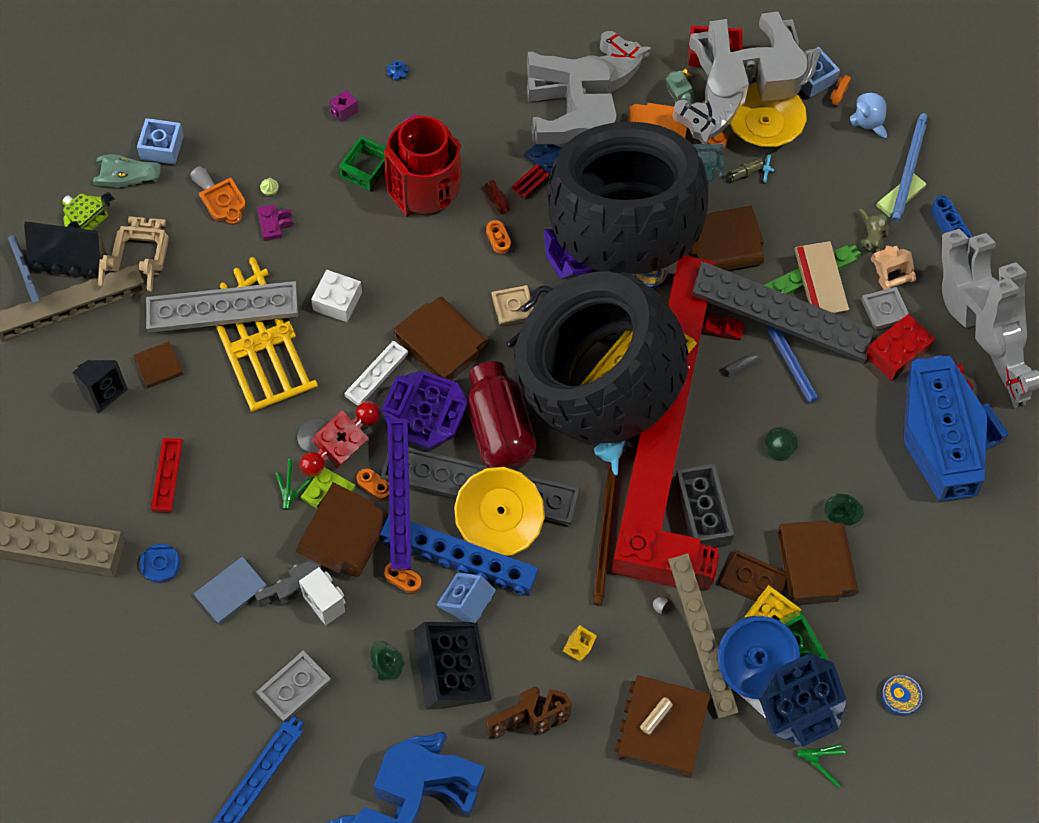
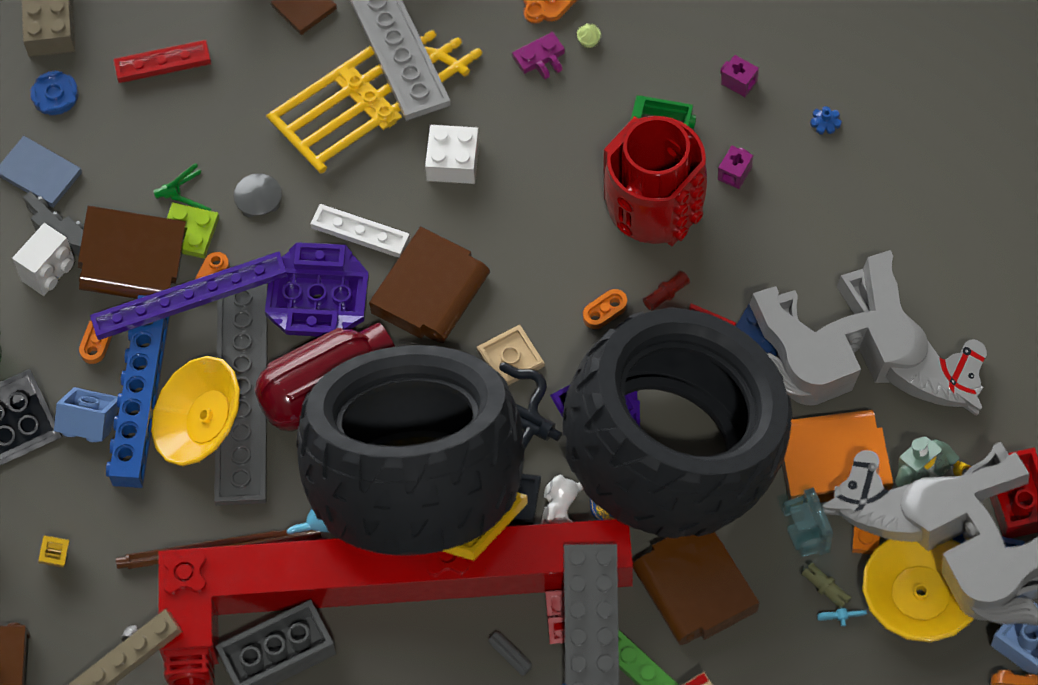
camera: 80 degrees right, 0 degrees up
(336, 451) = (237, 211): red brick -> none

